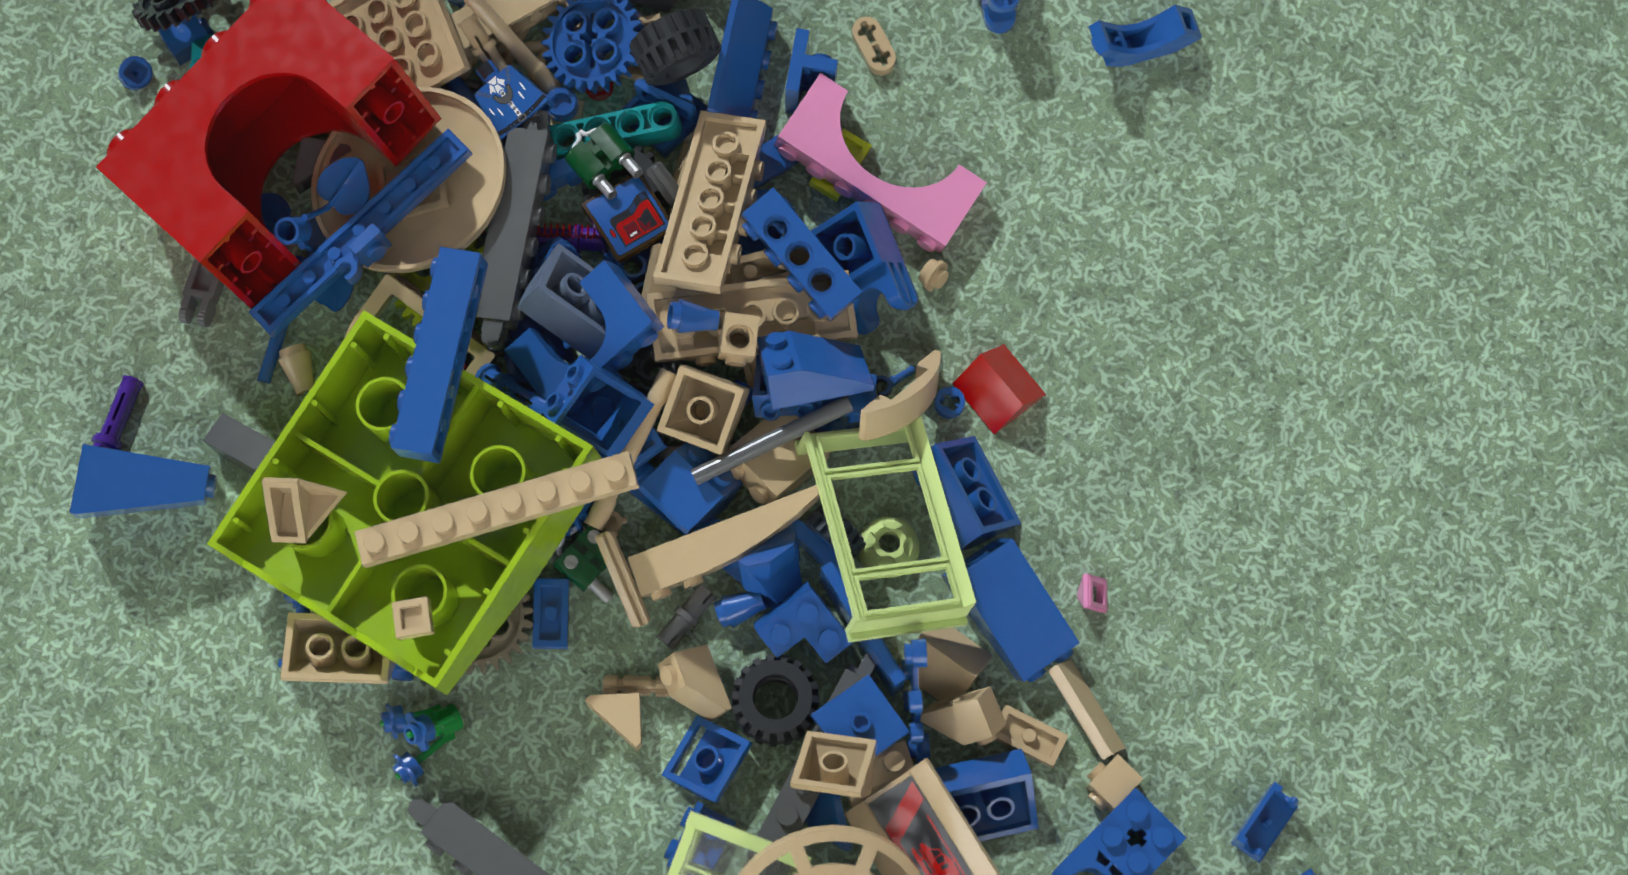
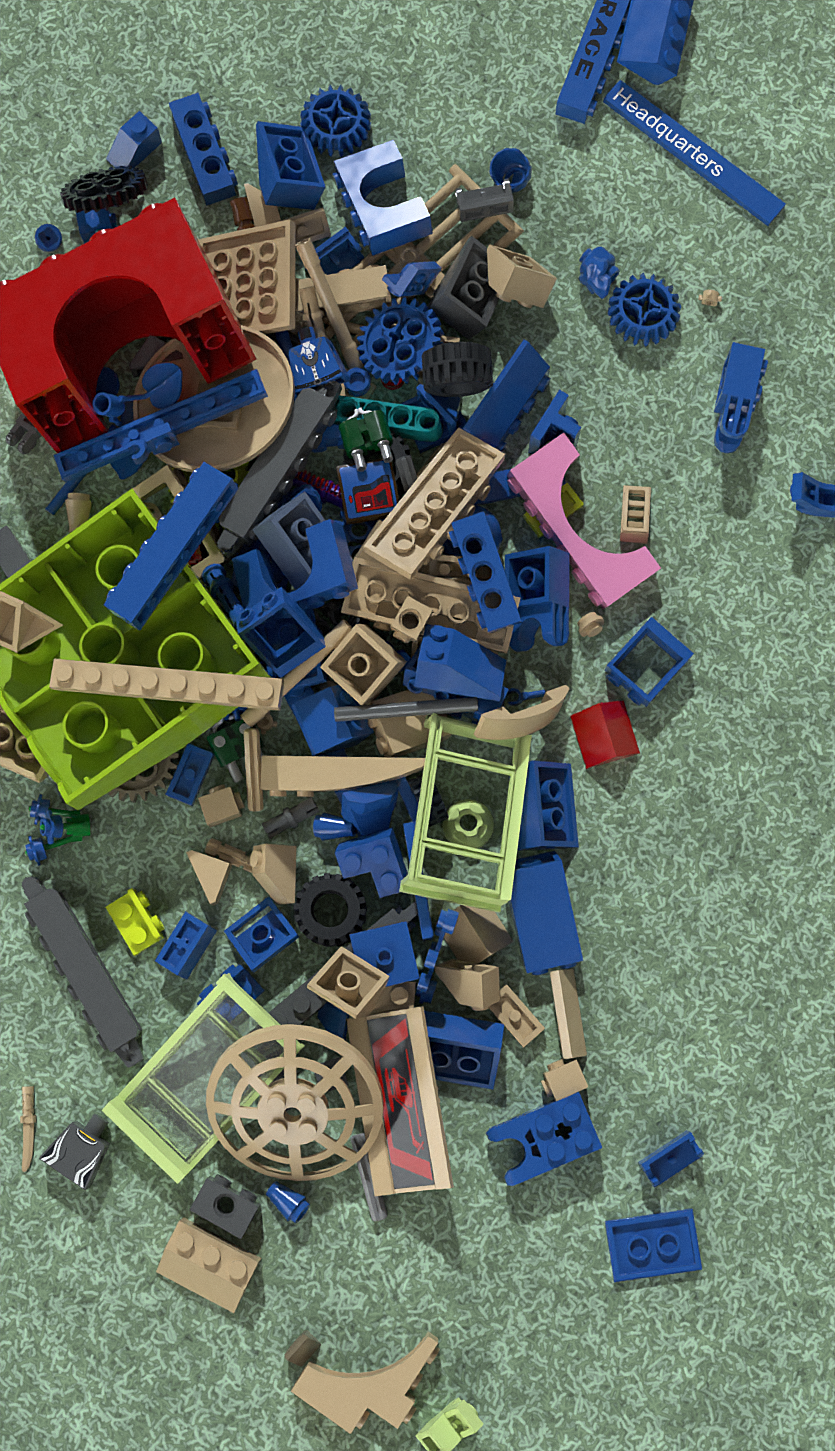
camera: 30 degrees right, 5 degrees up
(413, 618) = (69, 743): tan plate -> none
(555, 803) = (135, 921): none -> neon yellow bracket
(601, 633) = (221, 805): none -> tan brick
(626, 806) = (185, 945): none -> blue hinge
(690, 317) = (380, 589): blue cone -> none
(879, 42) = (624, 424): tan beam -> none
(936, 155) = (635, 531): none -> tan slope
(945, 412) = (567, 724): blue bush -> none
(1024, 261) = (664, 640): none -> blue window
(1085, 593) = (605, 922): bright pink slope -> none

